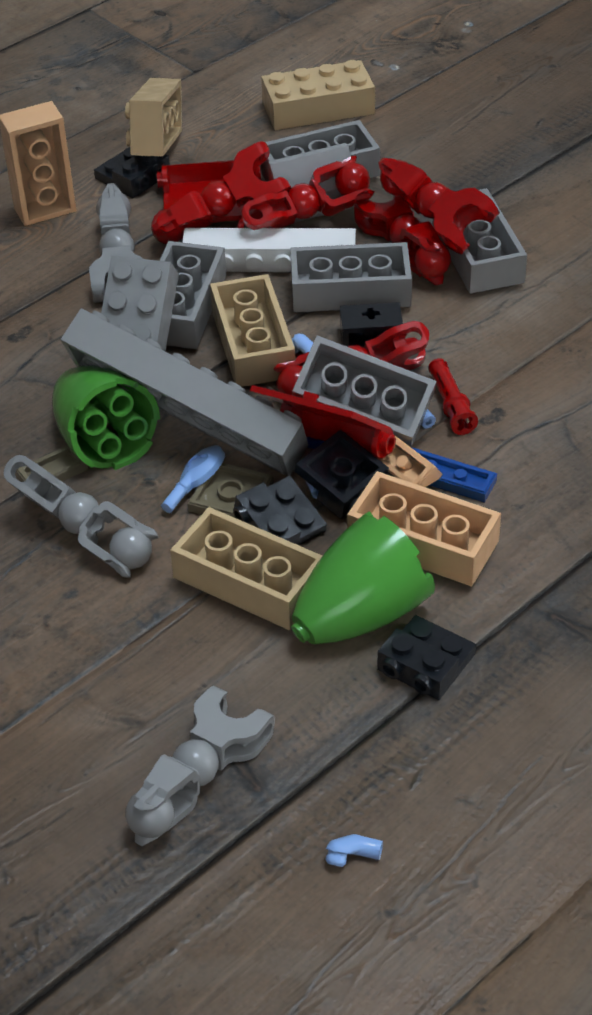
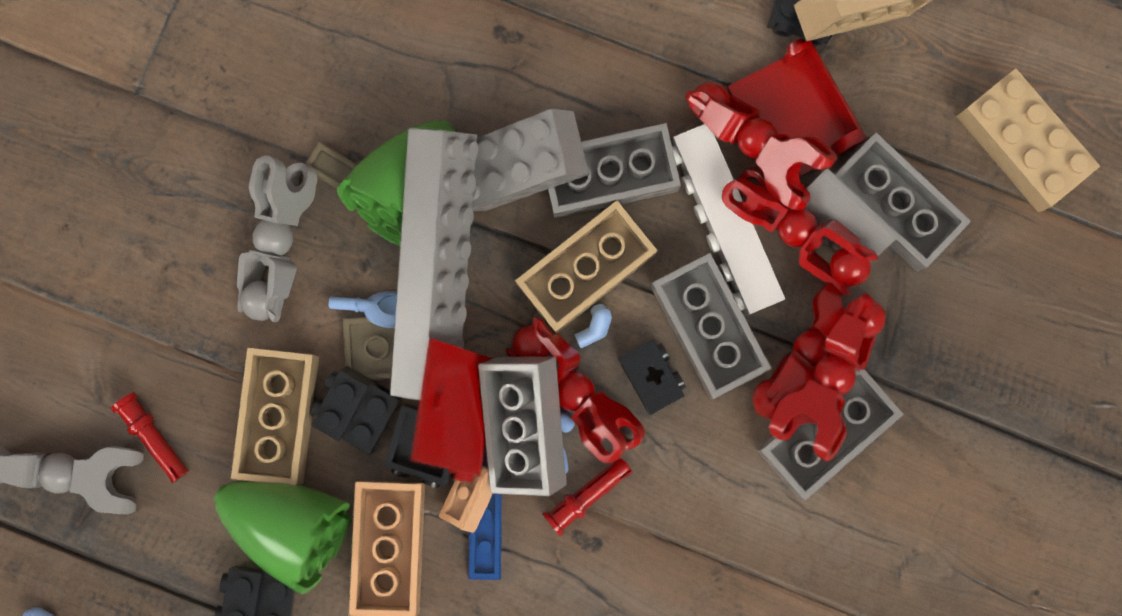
camera: 65 degrees right, 40 degrees up
(113, 210) = (656, 65): light grey piece -> none
(189, 684) = (141, 424): none -> red pin

